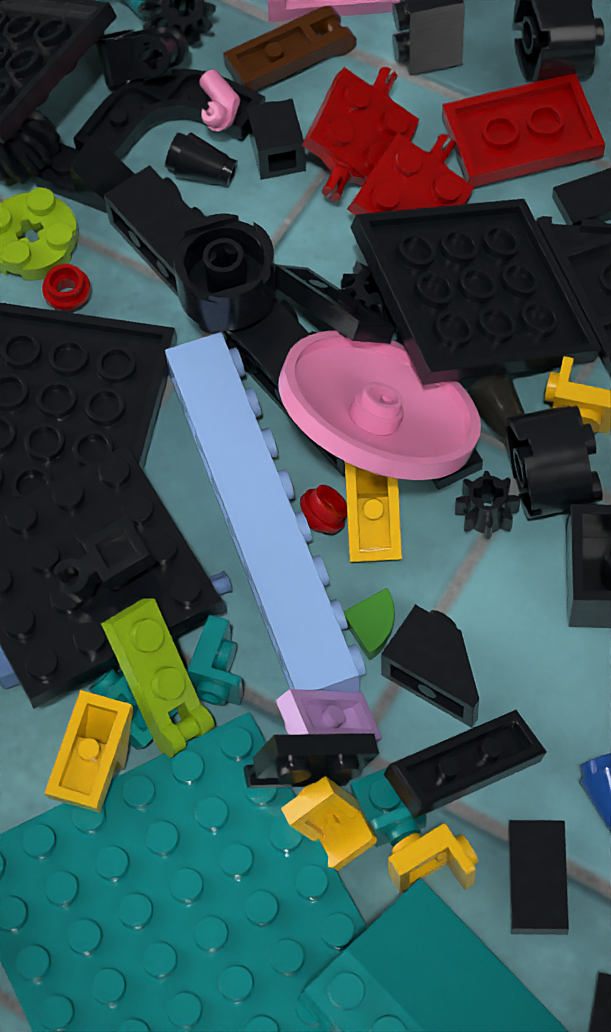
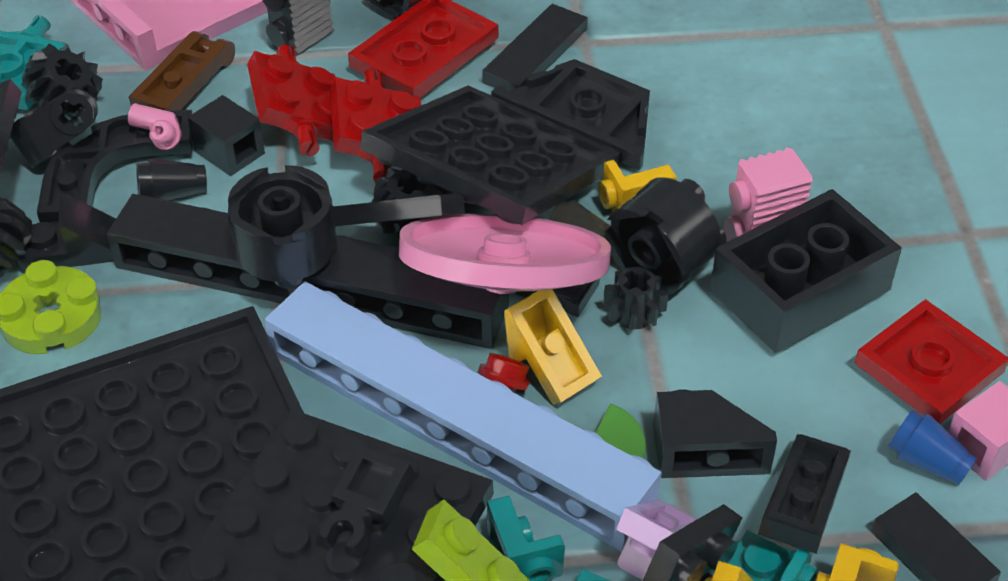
camera: 40 degrees left, 15 degrees down
(64, 277) = (117, 328): red plate -> none

